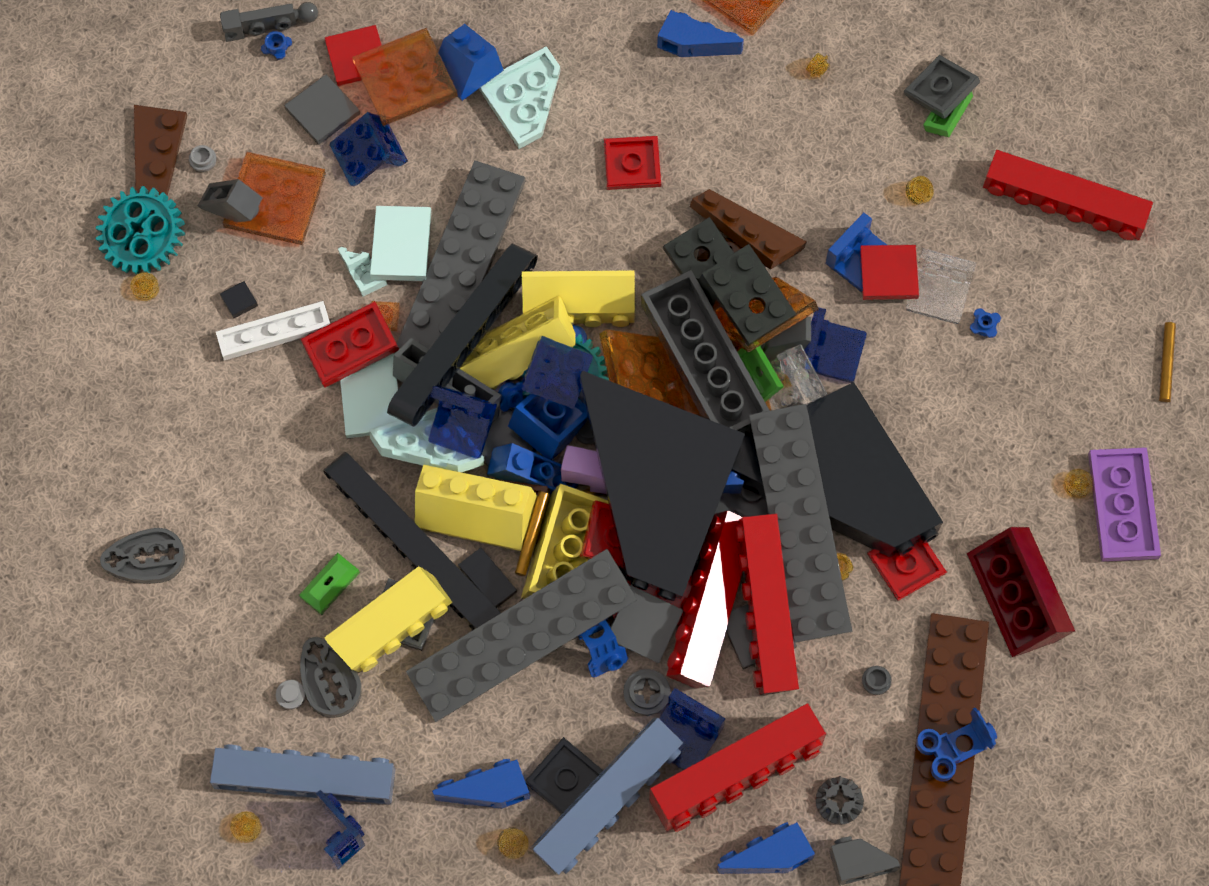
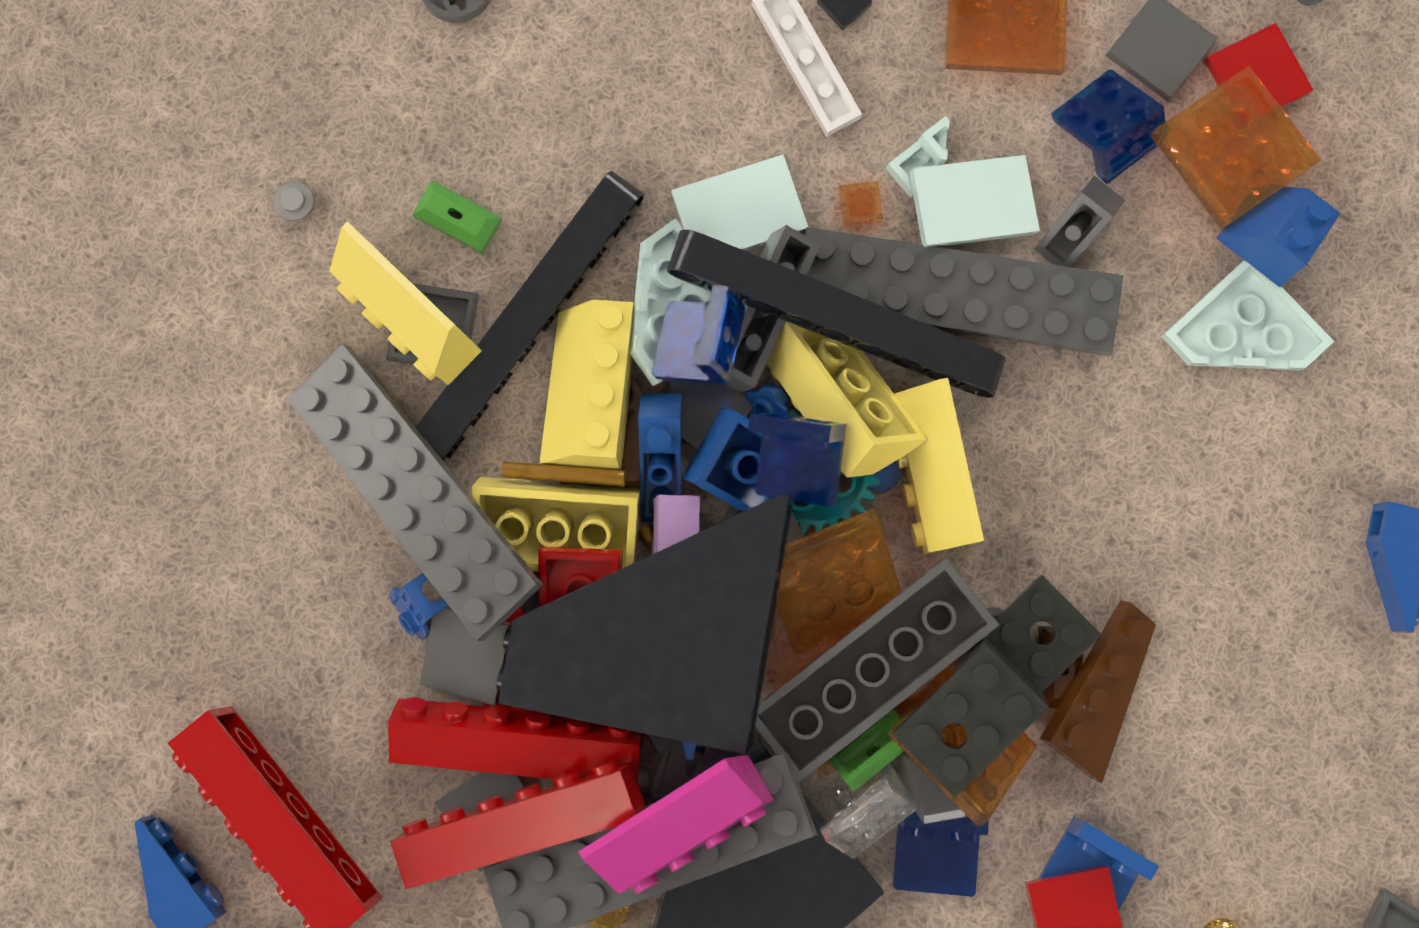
camera: 75 degrees right, 15 degrees up
(246, 827) = (109, 186): clear yellow tile -> none
(302, 775) = (183, 243): sand blue brick -> none
(315, 689) = (306, 233): dark grey piece -> none
(341, 845) = (116, 307): clear blue bracket -> none
(349, 344) = (803, 165): red tile -> none
(432, 180) = (1080, 223): none -> dark grey slope
(487, 577) = (502, 426): black tile -> none
(492, 788) = (203, 491): blue slope -> none
(512, 843) = (140, 535): clear yellow tile -> none
(563, 775) = (241, 589): black tile -> none
(606, 796) = (213, 649): sand blue brick -> none
(632, 162) = (1175, 503): red tile -> none
(637, 682) = (363, 662): dark grey gear -> none
(693, 725) = (325, 738): clear blue bracket -> none
(783, 481) = (679, 824): none -> dark pink slope
(818, 65) = (1397, 751): clear yellow plate -> none

